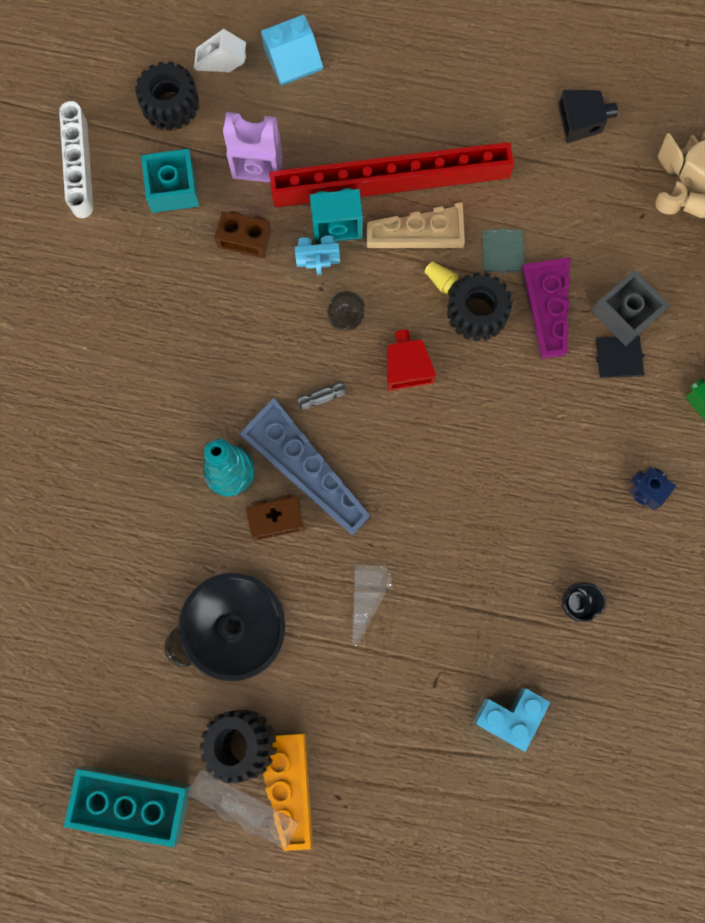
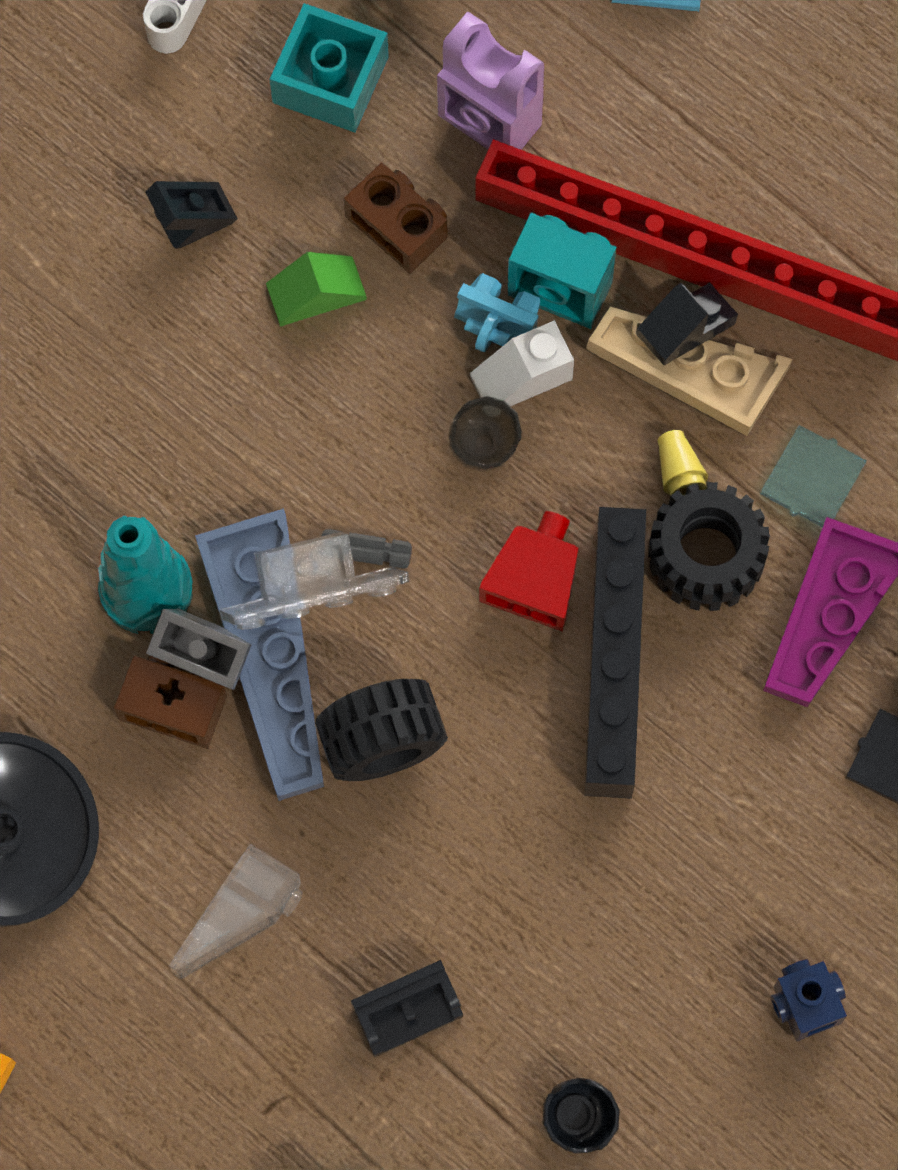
camera: 30 degrees right, 5 degrees down
(143, 283) = (190, 209): none -> black slope
(224, 287) = (315, 286): none -> bright green slope
(275, 485) = (199, 647): none -> flat silver slope
(305, 423) = (307, 576): none -> clear bracket
(345, 270) = (525, 366): none -> white slope
(384, 475) = (381, 729): none -> black tyre
(406, 210) = (685, 321): none -> black slope
(467, 379) = (615, 653): none -> black brick
(472, 598) = (407, 1008): none -> black hinge

